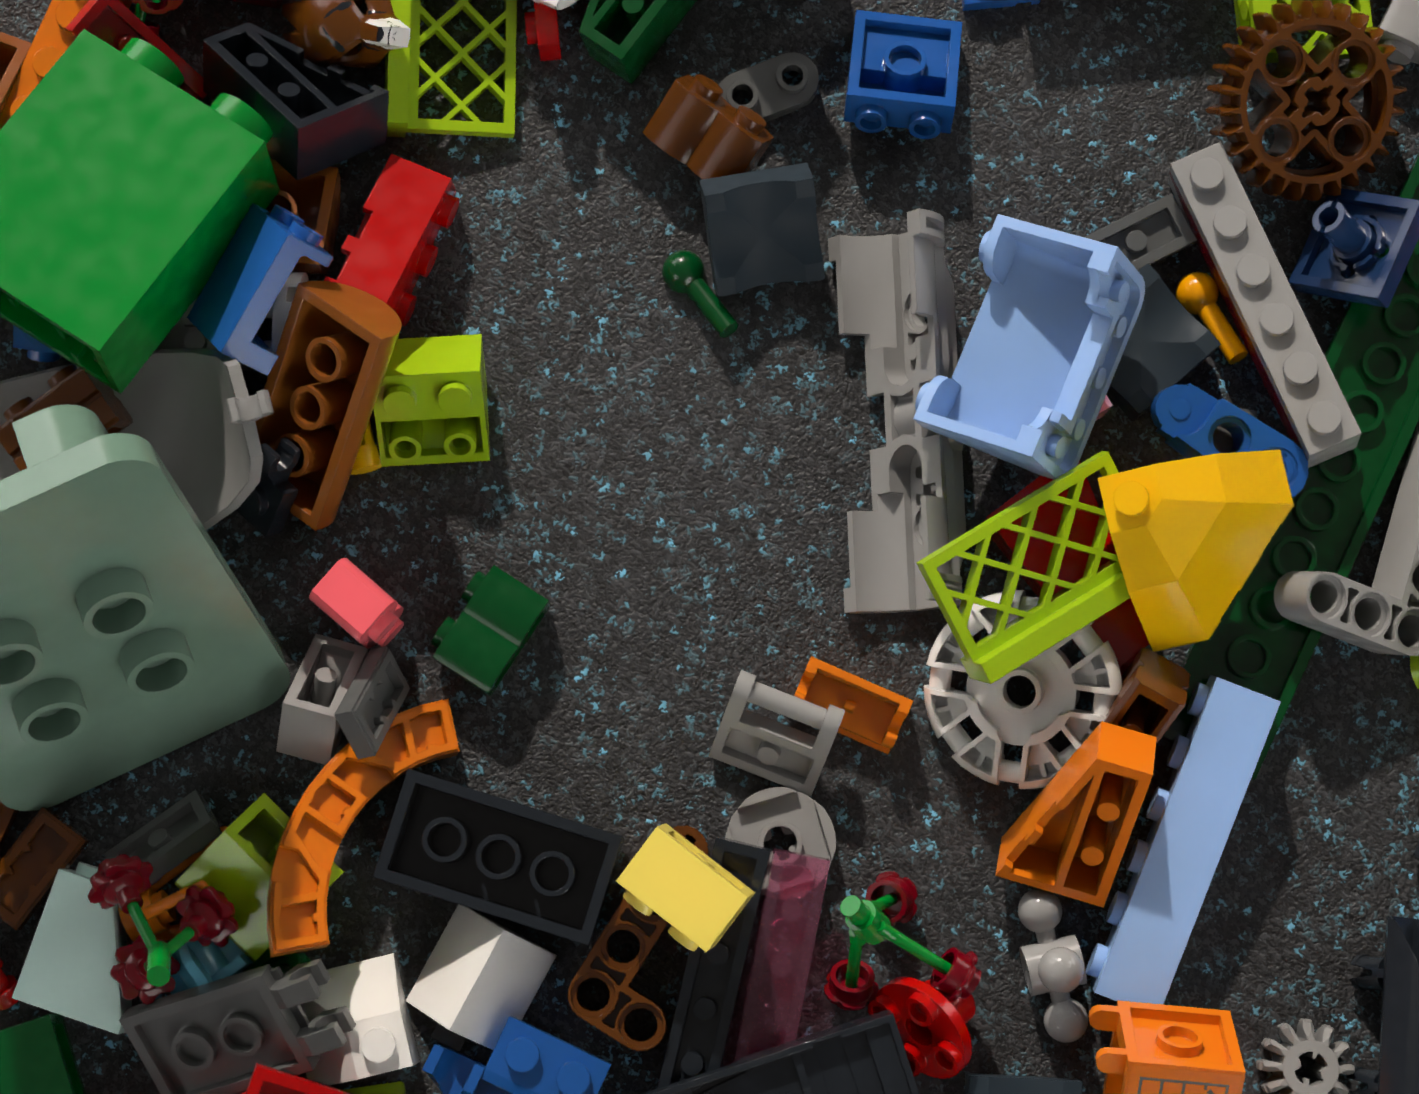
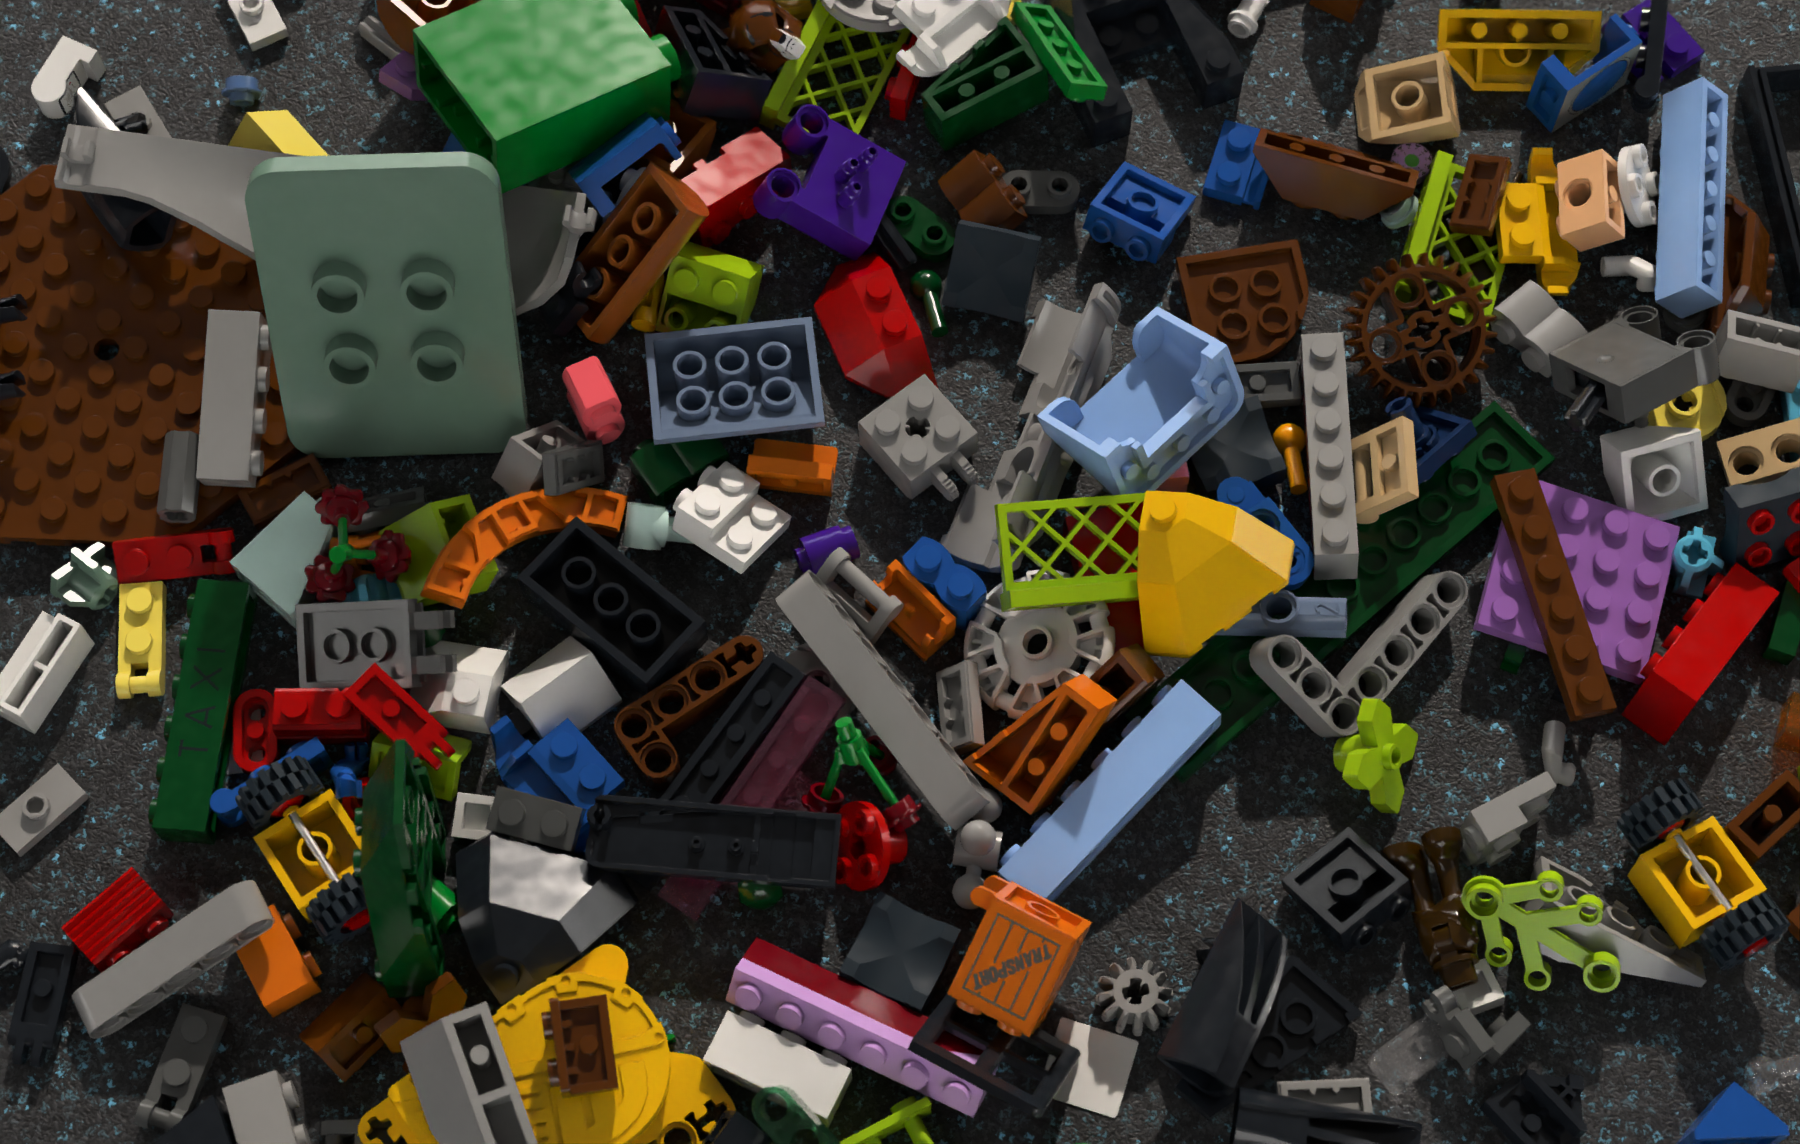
camera: 25 degrees right, 15 degrees down
(496, 730) = (649, 527): none -> light aqua axle
(519, 513) = (733, 380): none -> sand blue slope
(534, 198) = (842, 191): none -> dark purple piece
(585, 680) = (729, 517): none -> white plate
(627, 574) = (793, 466): none -> orange panel
(640, 203) = (918, 226): none -> dark green plate
(647, 358) = (872, 327): none -> red wedge
(683, 889) = (731, 666): light yellow brick -> none
(715, 670) = (818, 546): none -> dark purple brick
(781, 514) = (920, 440): none -> light grey hinge
(872, 841) = (883, 700): none -> light grey beam
(888, 660) = (949, 582): none -> blue brick
(960, 802) = (960, 706): none -> light grey plate
(1075, 137) = (1246, 297): none -> reddish brown plate
(1328, 531) = (1305, 617): none -> sand blue piece
(1349, 296) = (1392, 468): none -> tan plate

